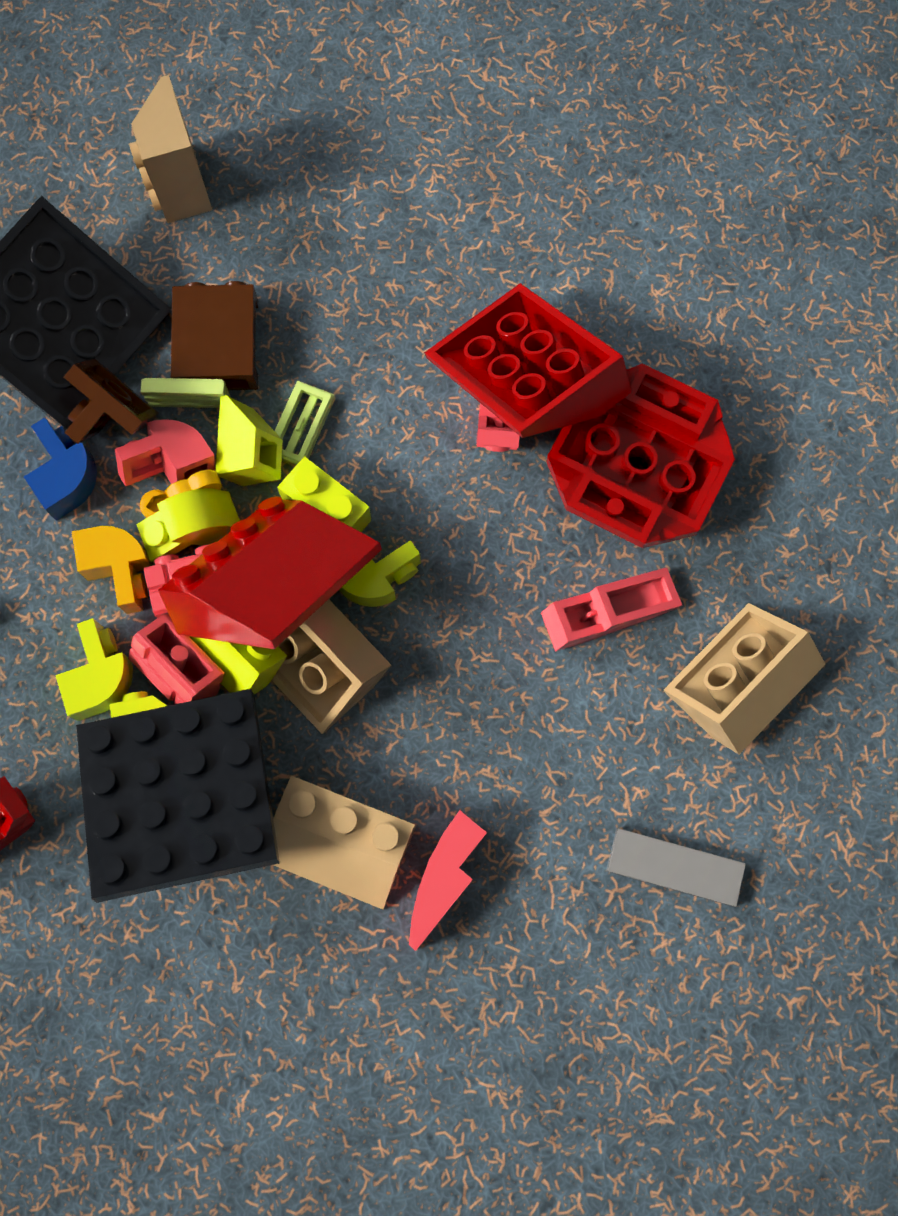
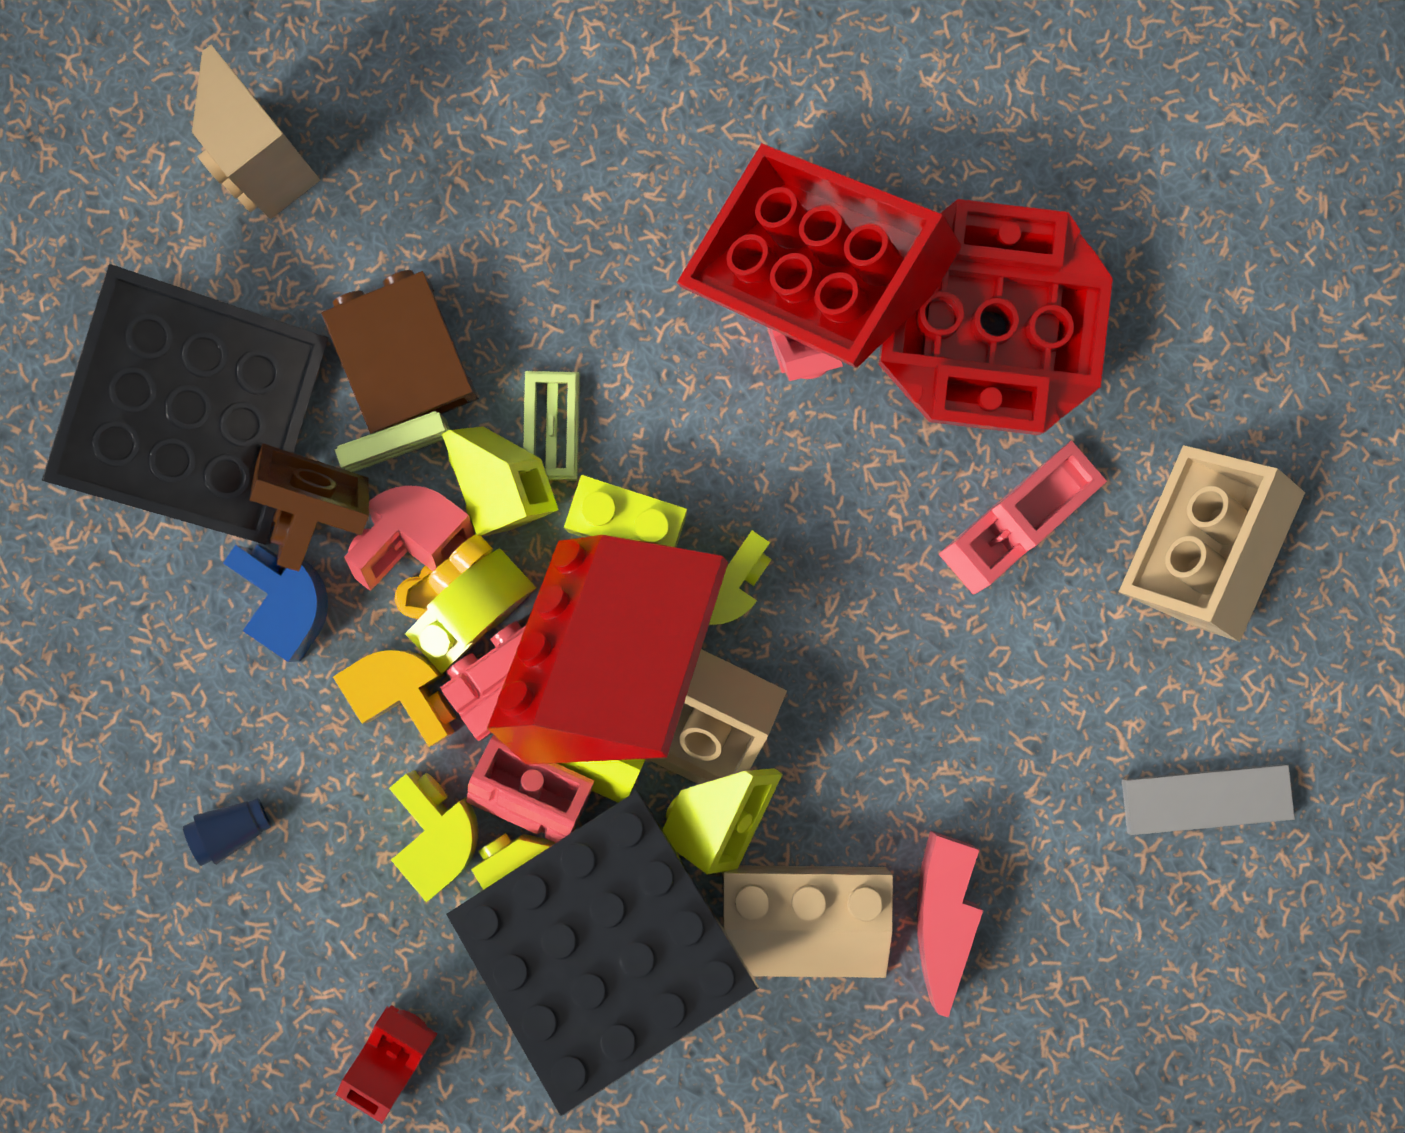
camera: 20 degrees left, 10 degrees up
(306, 734) = (719, 818): none -> neon yellow slope

